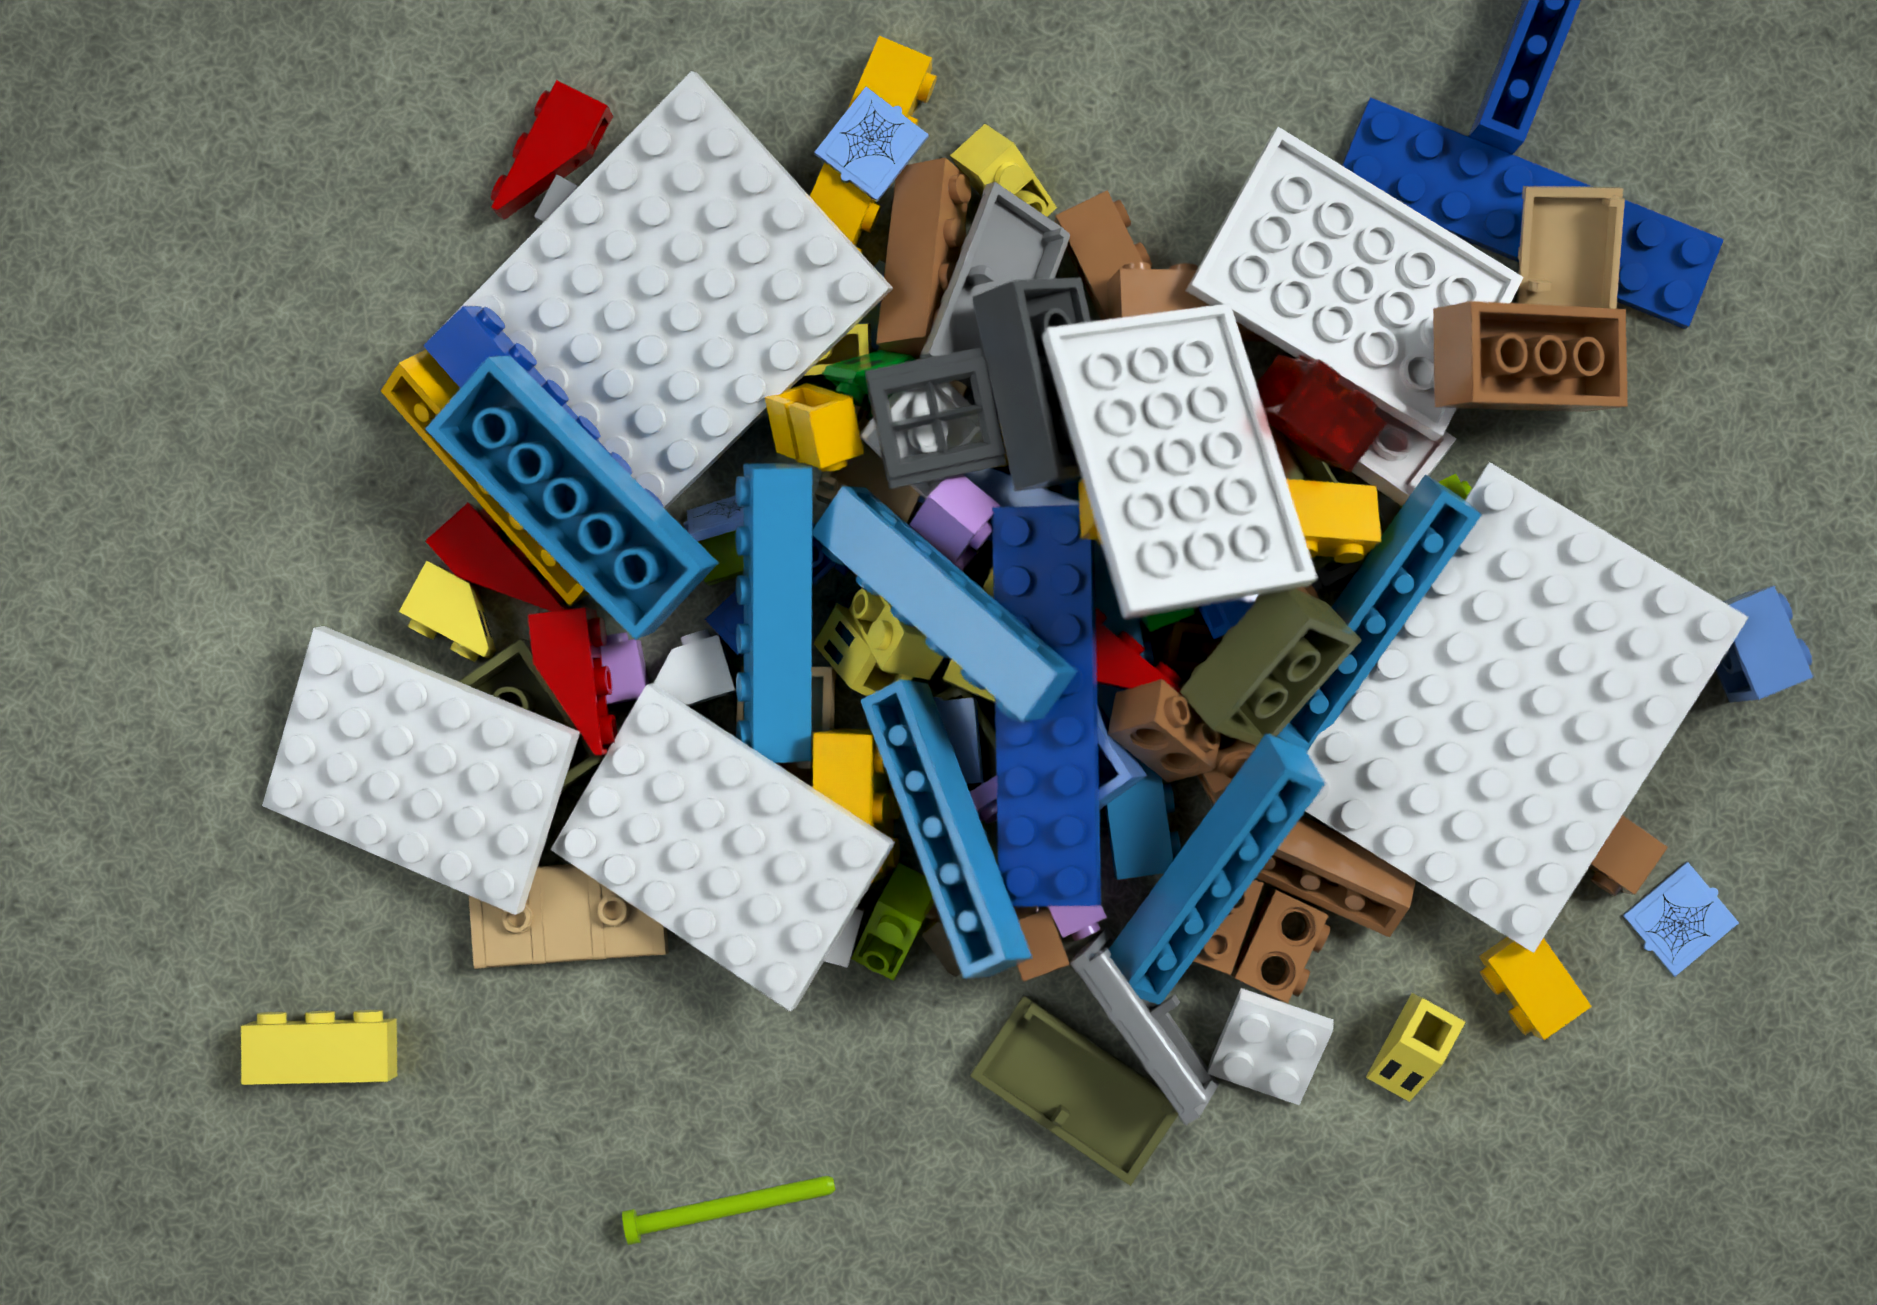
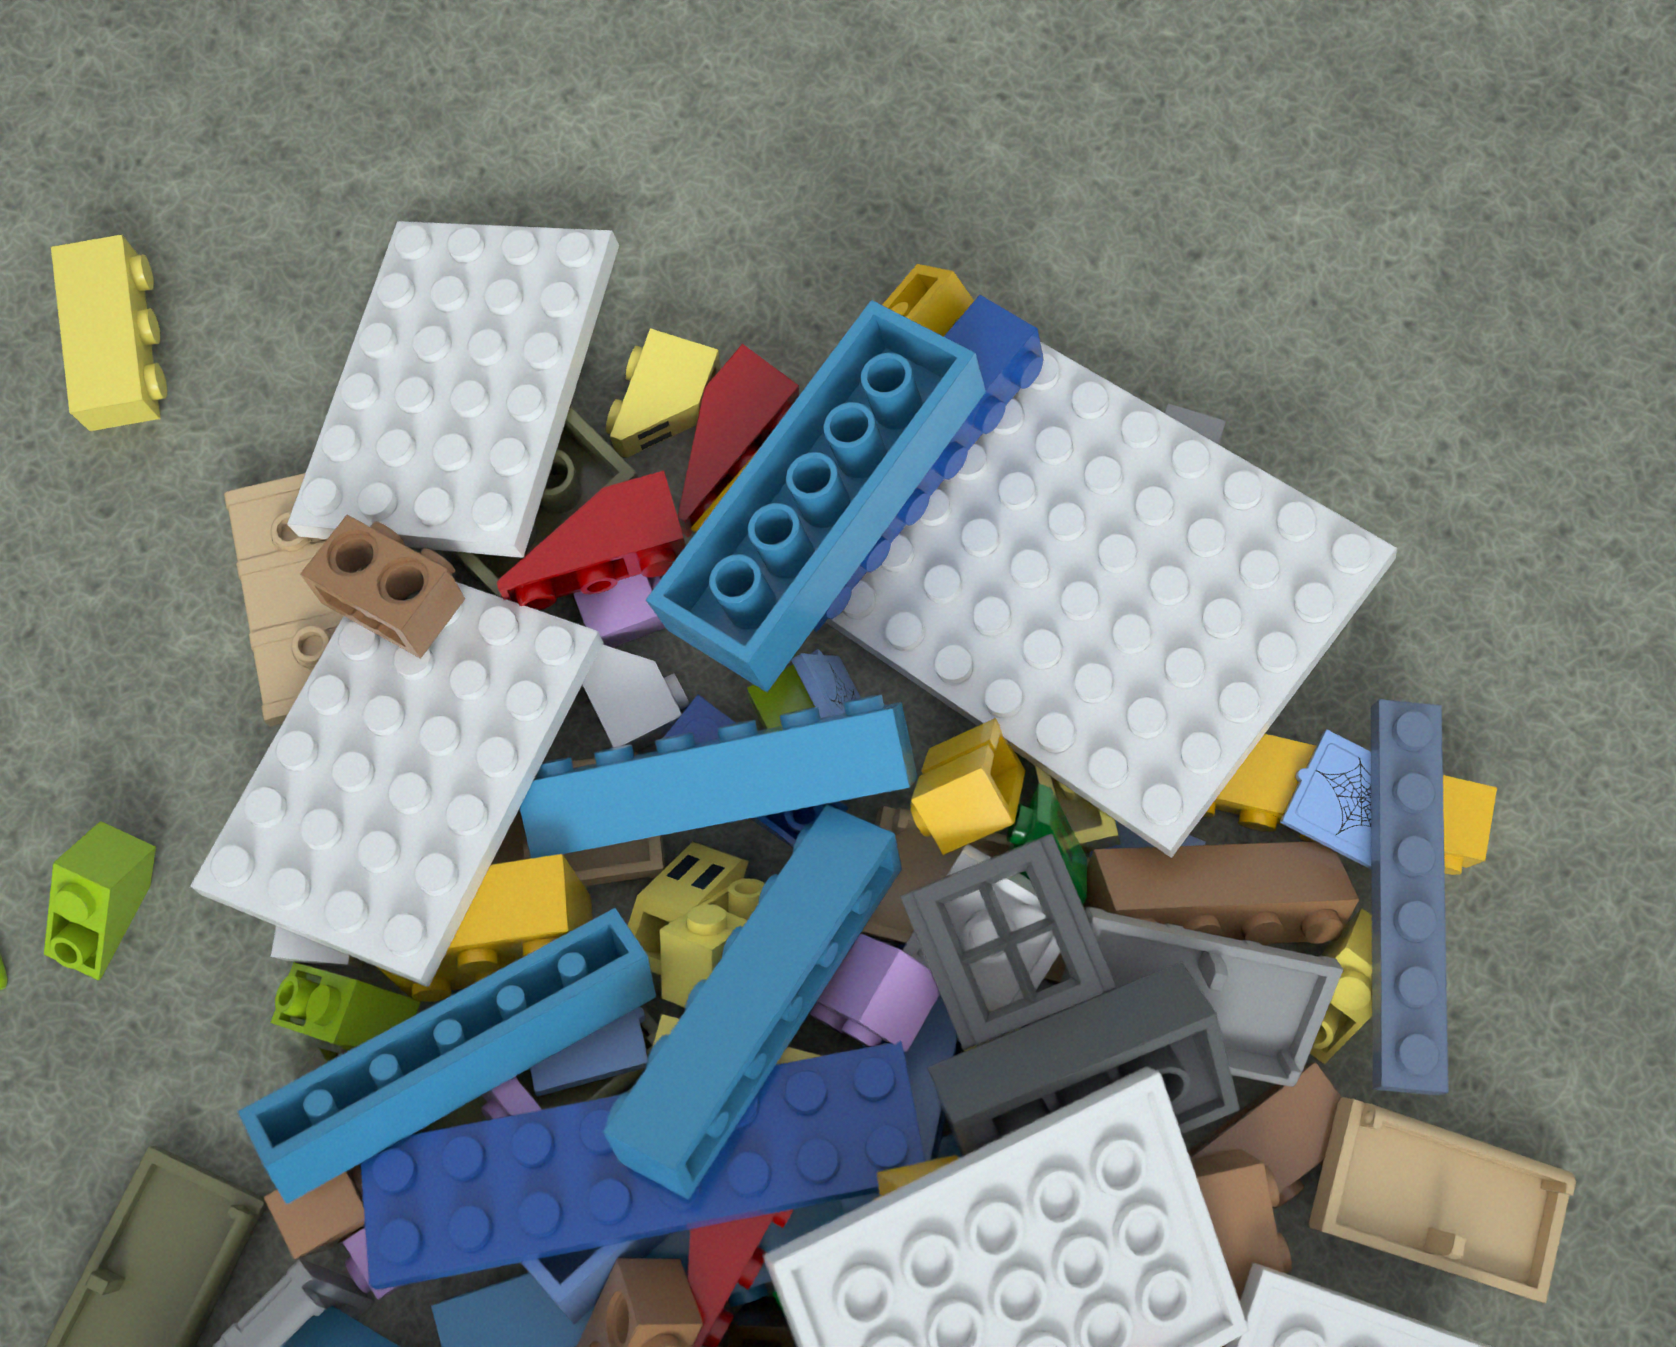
camera: 75 degrees right, 10 degrees down
(559, 142) = (1266, 421): red slope -> none
(590, 848) = (378, 592): none -> medium nougat brick
(779, 1098) = (96, 897): none -> lime slope
(947, 121) = (1408, 899): none -> sand blue plate
(1166, 146) = (1441, 1199): none -> tan container

